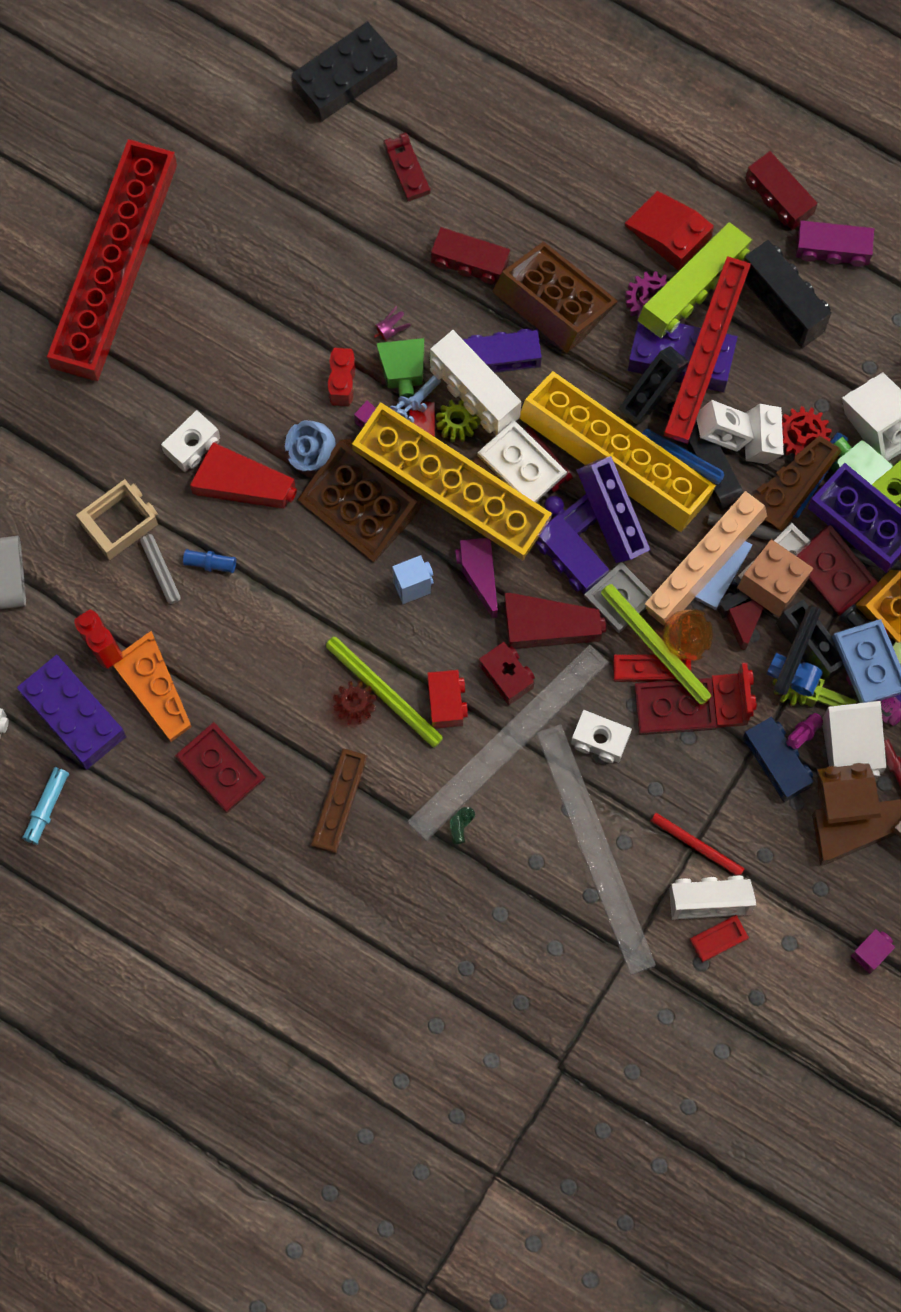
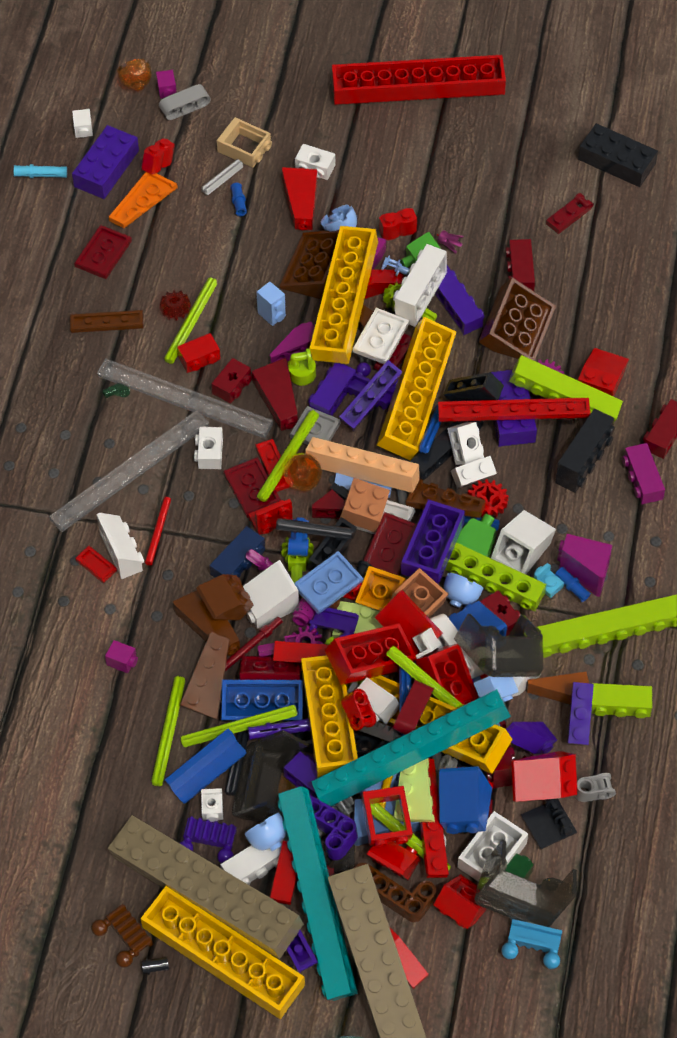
camera: 70 degrees right, 15 degrees down
(525, 577) = (302, 368): none -> lime piece

